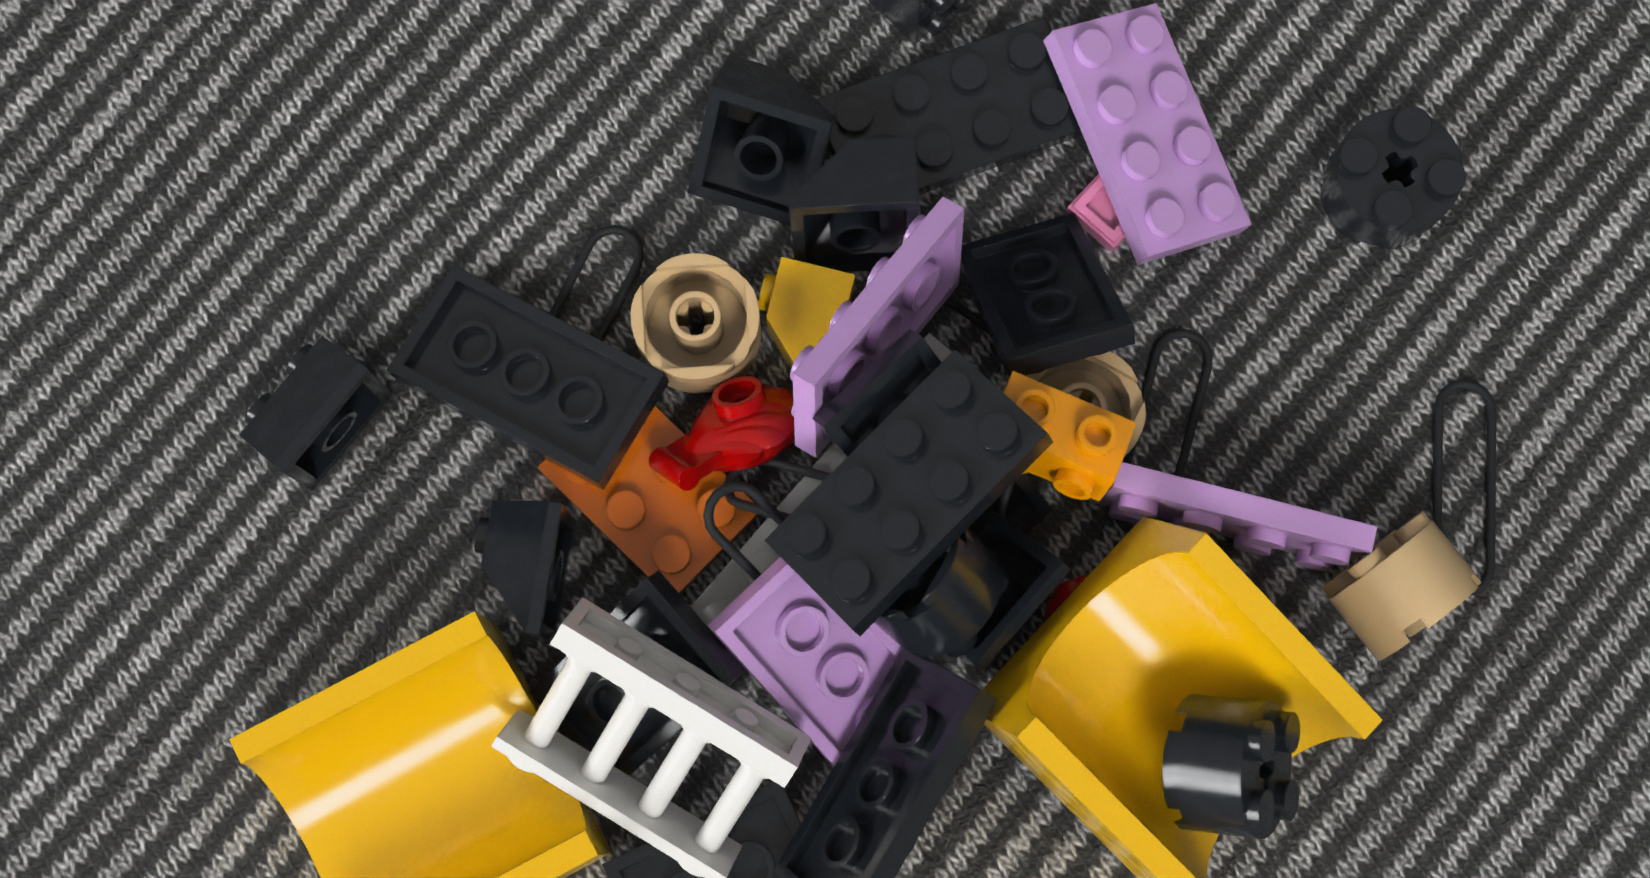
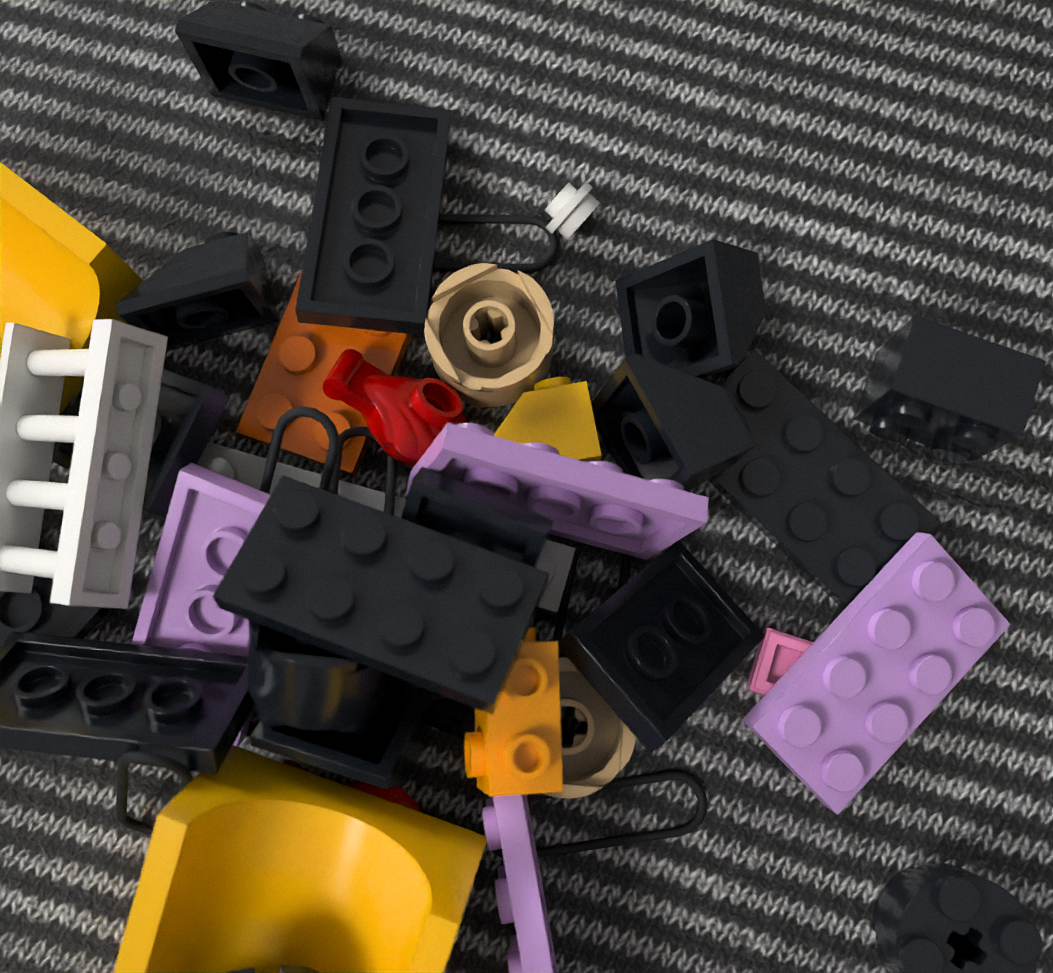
camera: 70 degrees right, 0 degrees up
(604, 199) = (570, 209): none -> white plate
(969, 732) = (122, 783): none -> black piece

